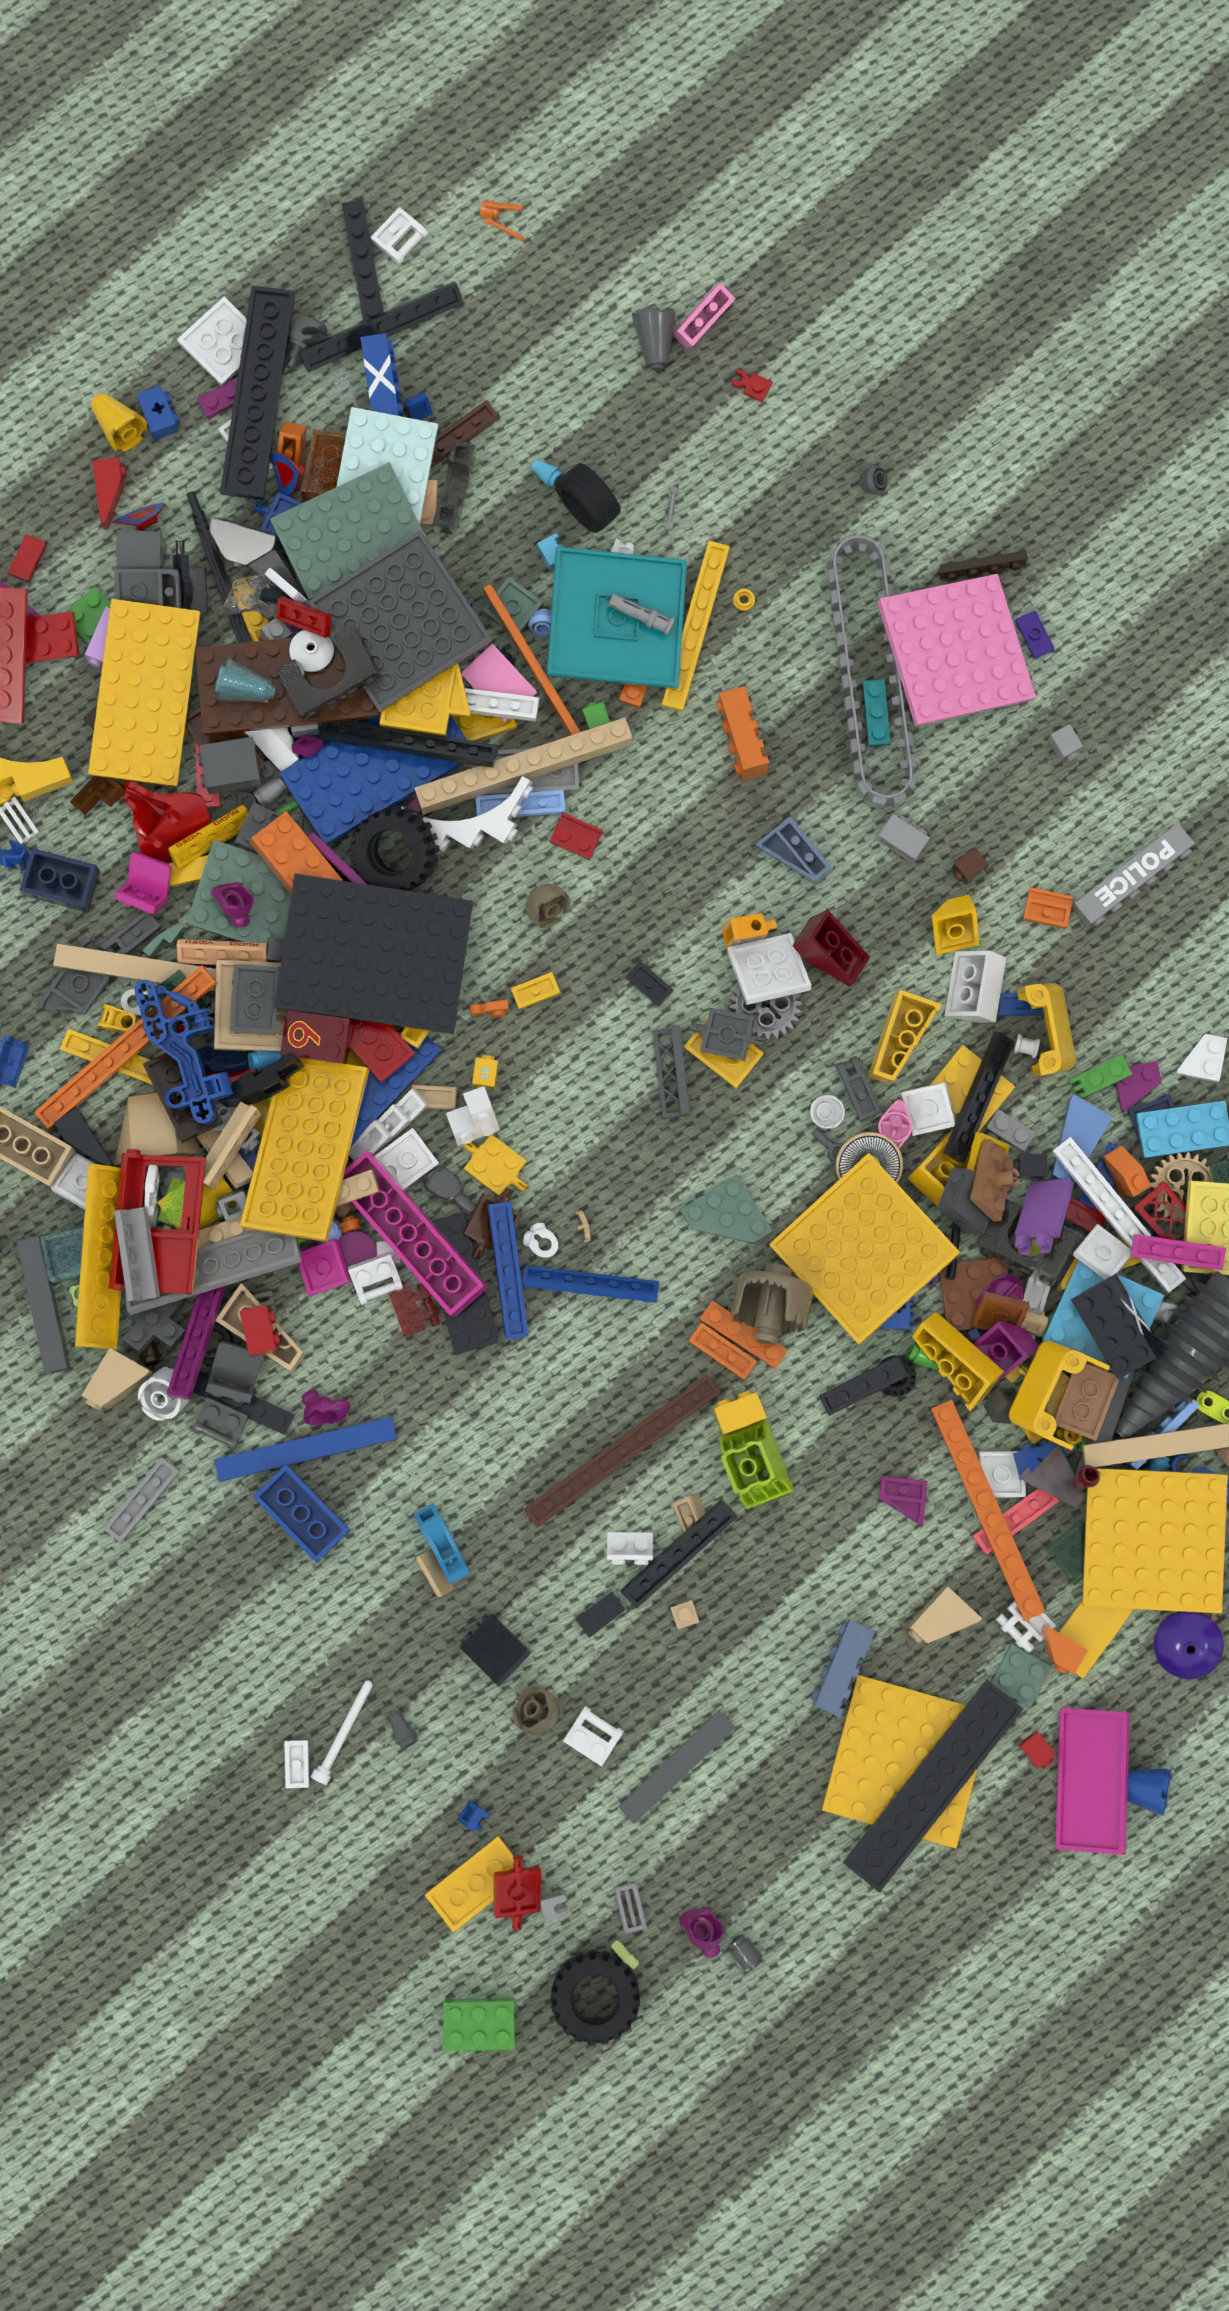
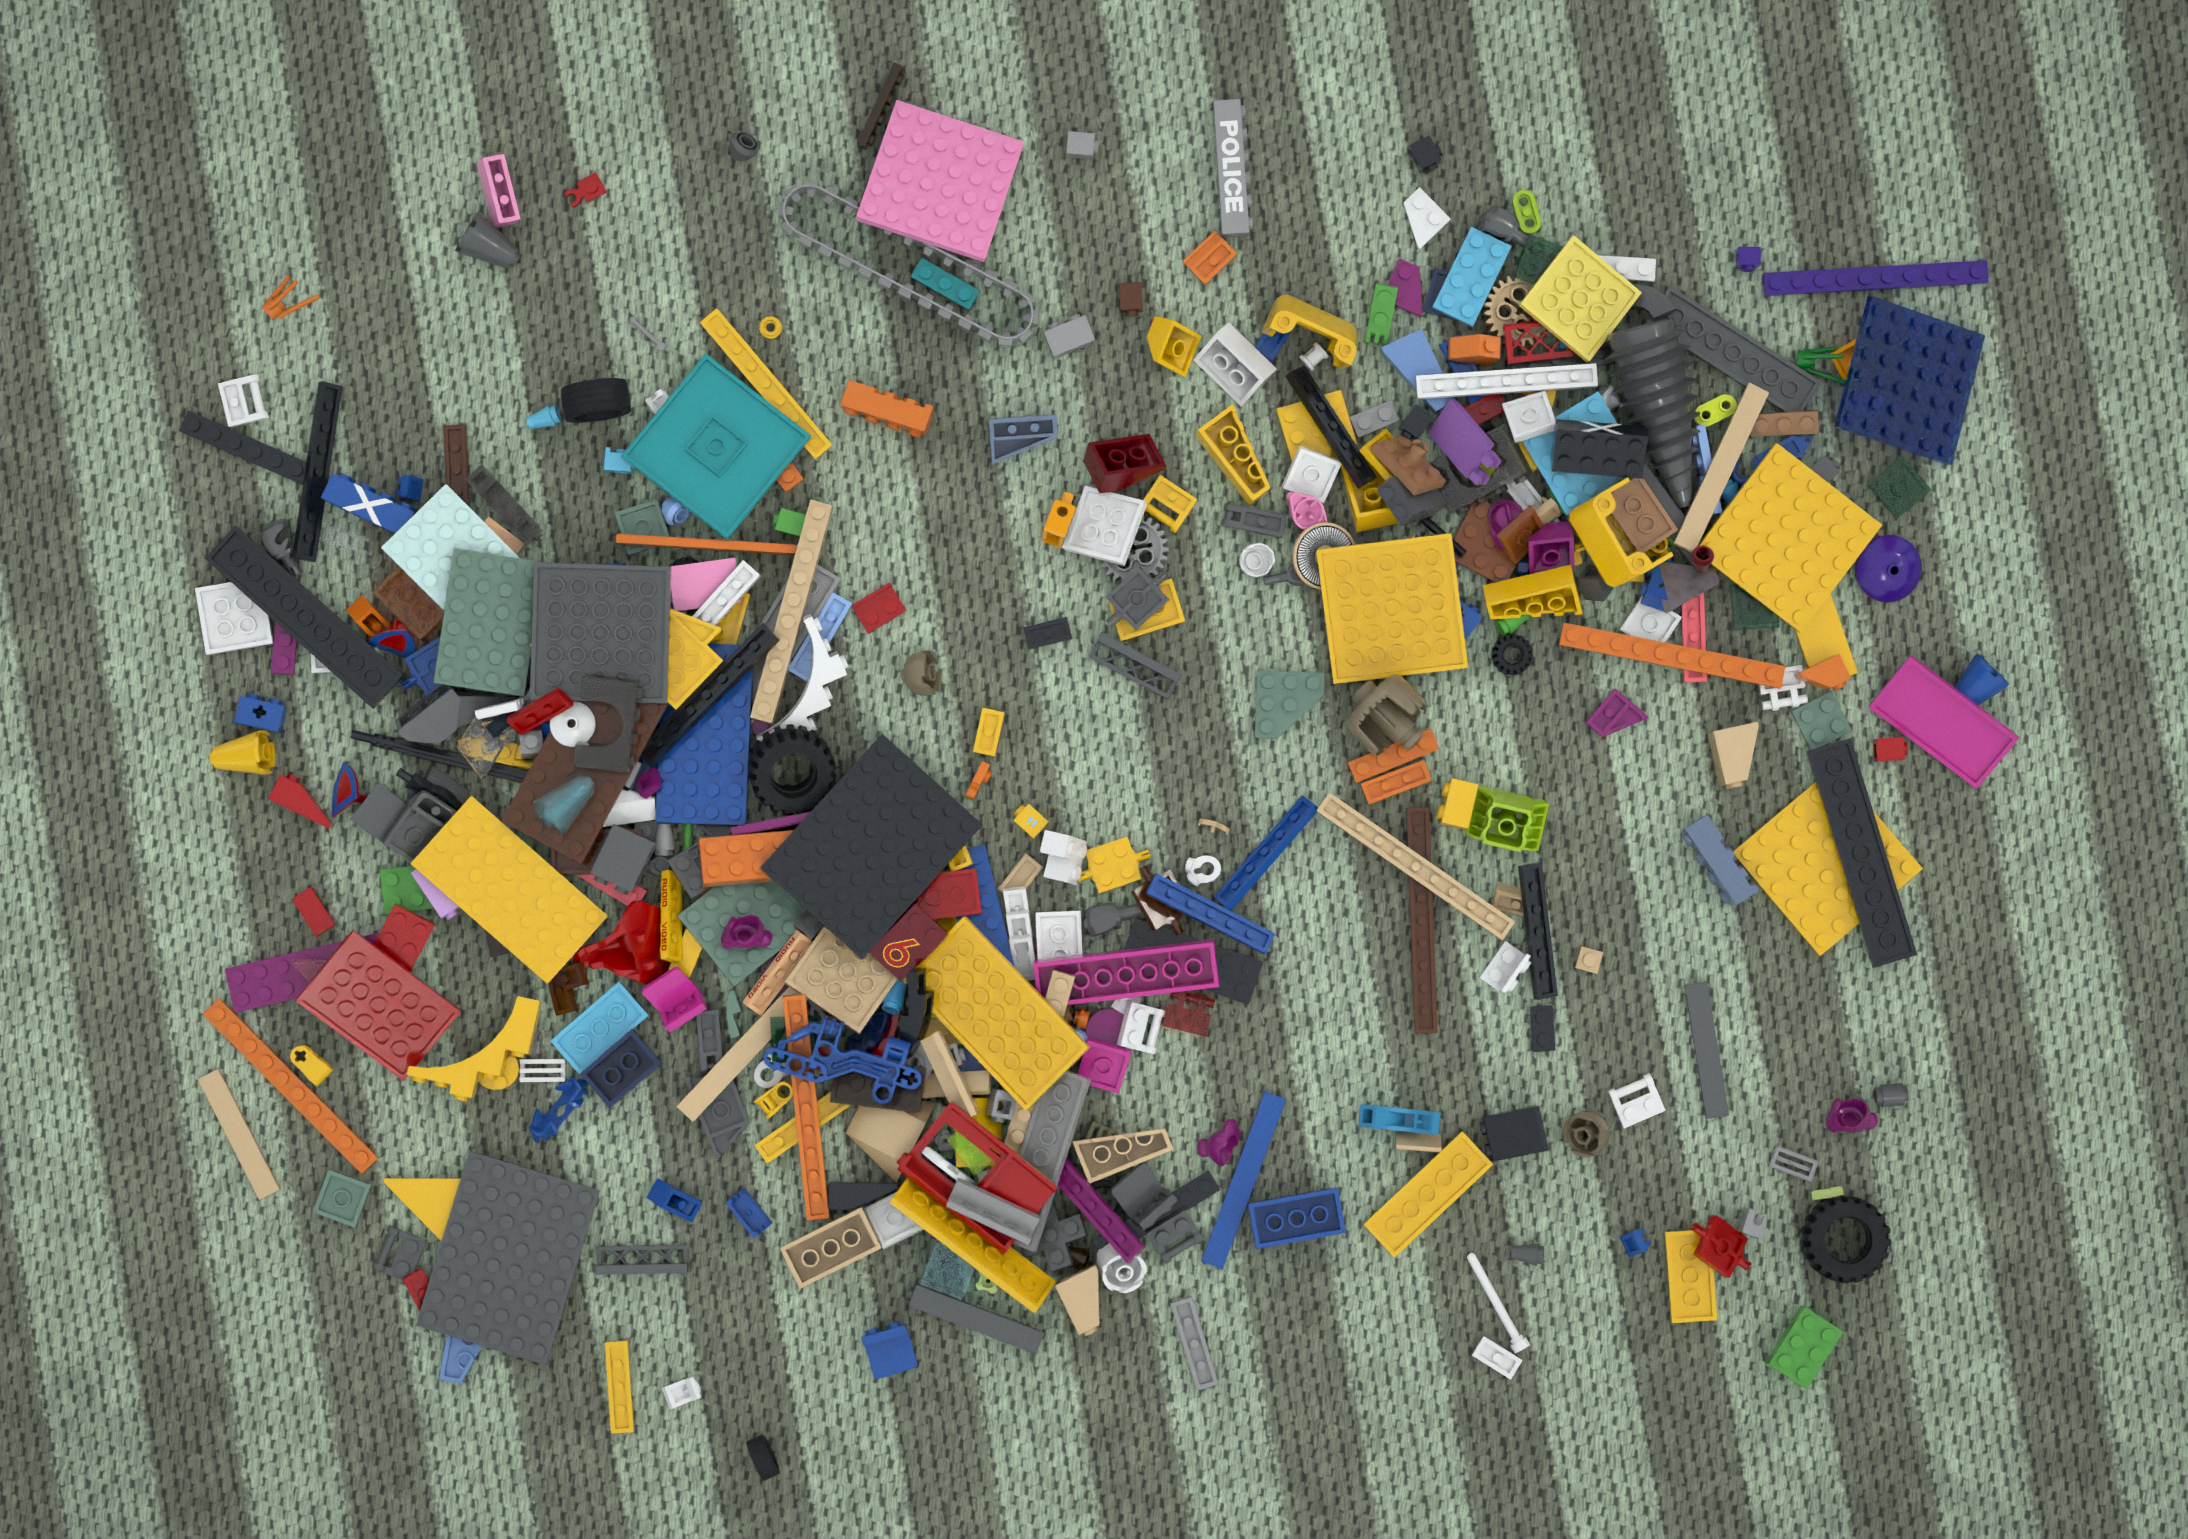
camera: 60 degrees left, 5 degrees up
(84, 841) = (599, 1027): none -> medium azure plate
(254, 999) = (840, 972): dark grey plate -> none
(259, 1331) = (1125, 1152): red brick -> none
(396, 1611) = (1428, 1194): none -> yellow plate
(651, 618) = (738, 417): light grey pin -> none
(663, 1414) = (1415, 866): none -> tan plate
(830, 1010) = (1171, 497): none -> yellow plate
(864, 1385) = (1503, 686): black tile -> none
(1034, 634) = (969, 104): dark purple plate -> none
(1178, 1252) = (1571, 355): dark pink plate -> none

